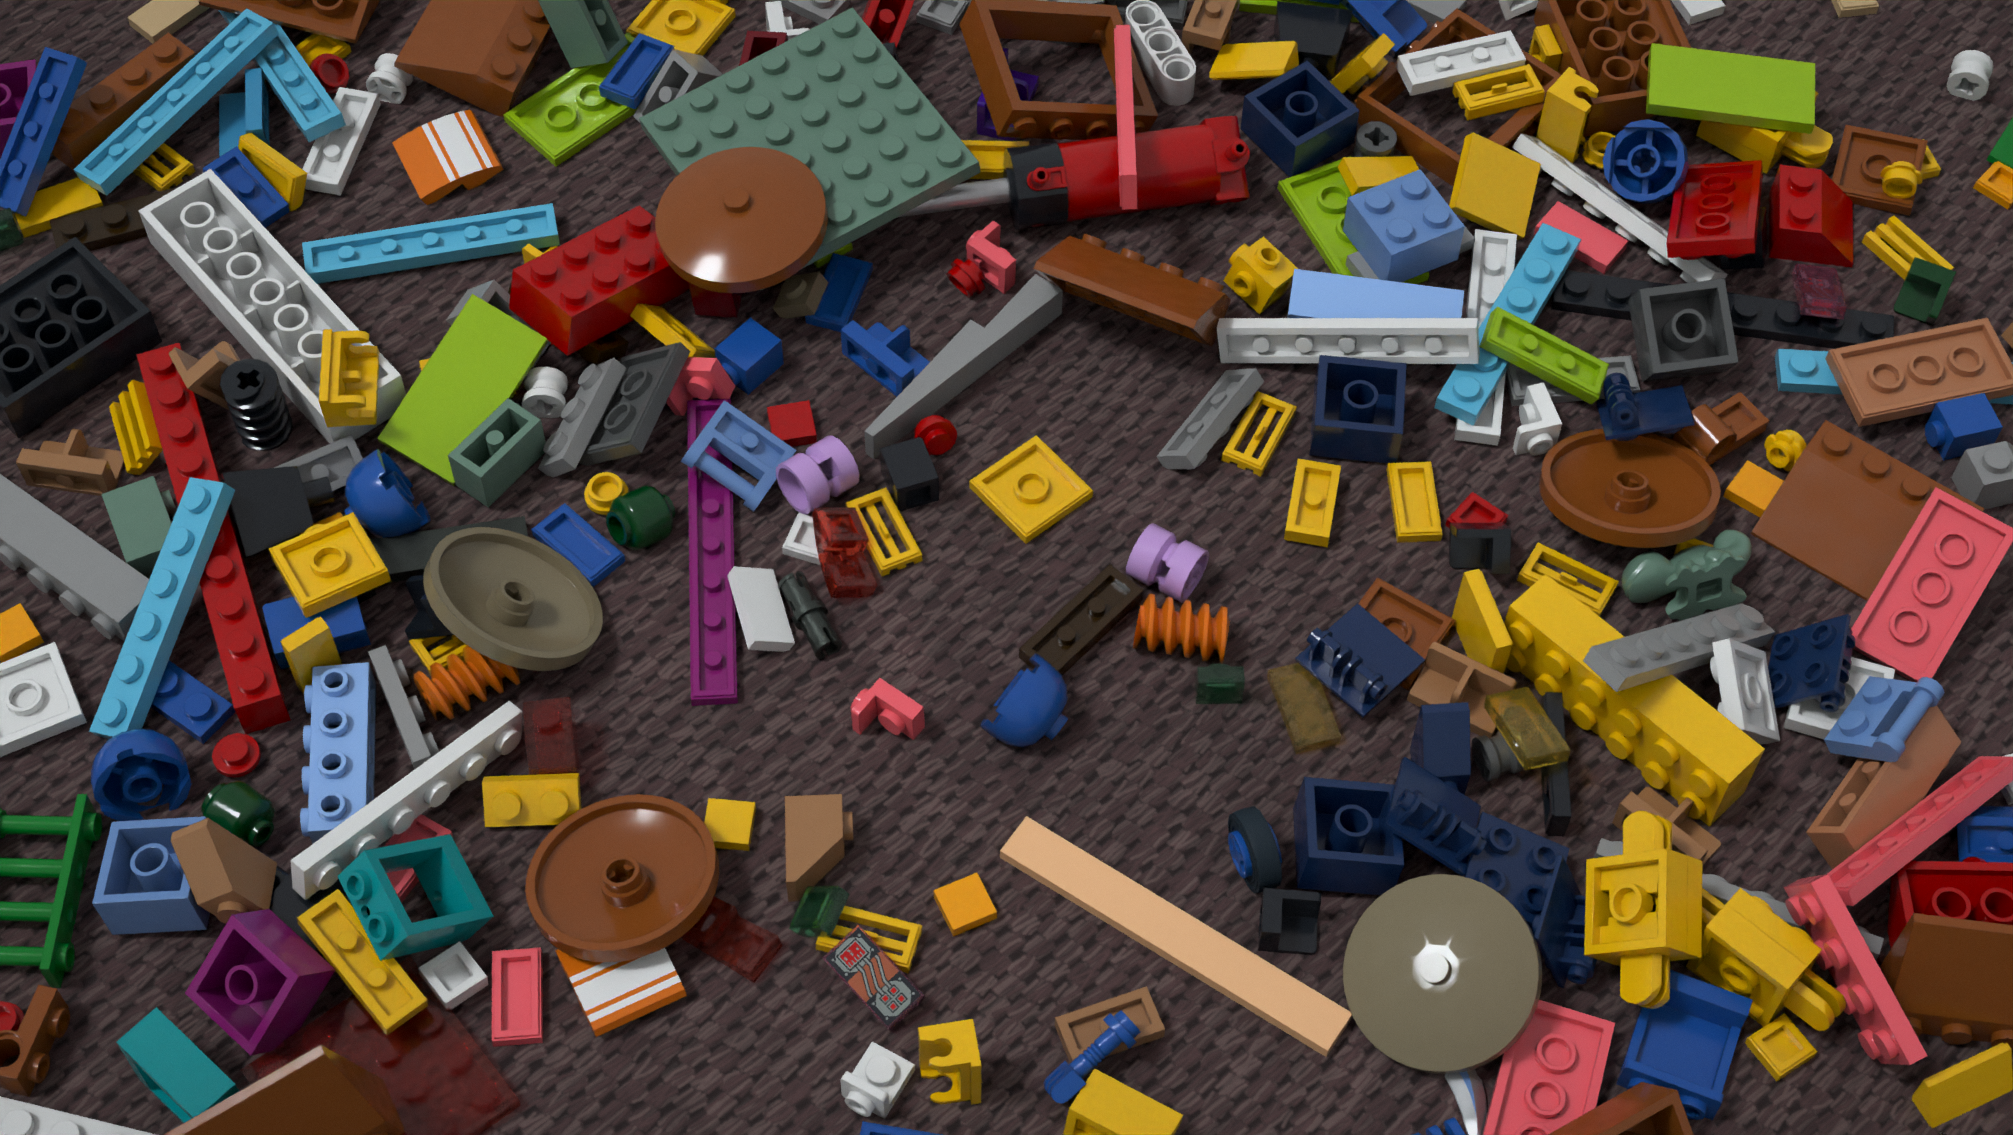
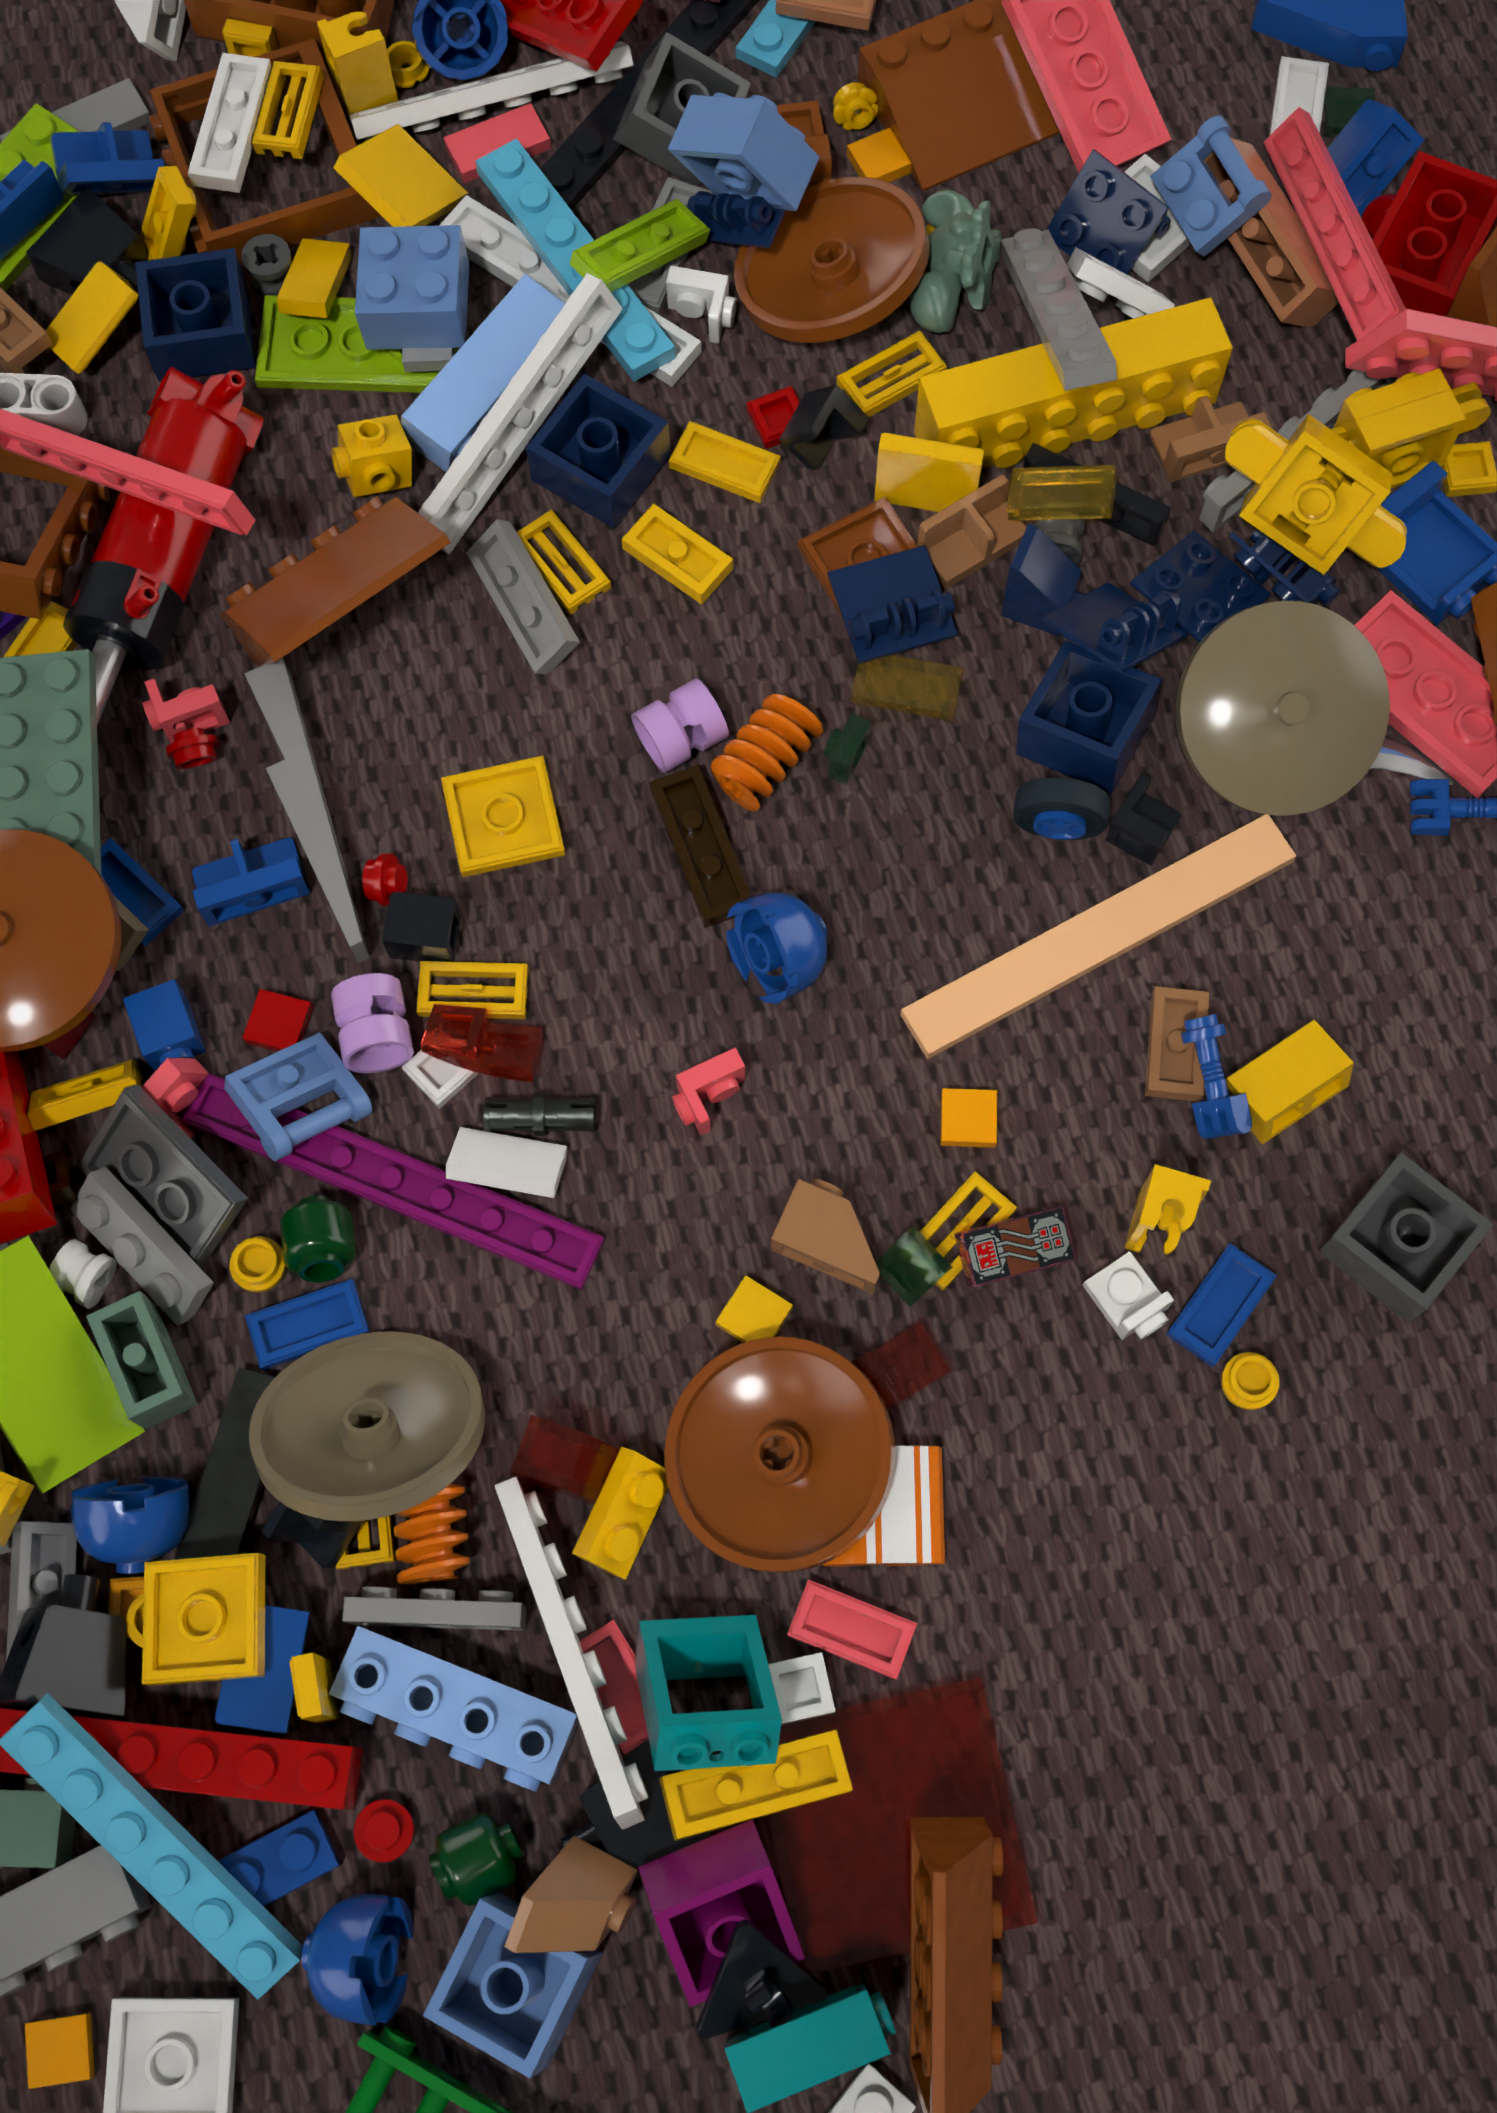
camera: 60 degrees left, 15 degrees up
(220, 1026) = (756, 1984): none -> black piece
(1662, 374) = (744, 149): none -> medium blue brick

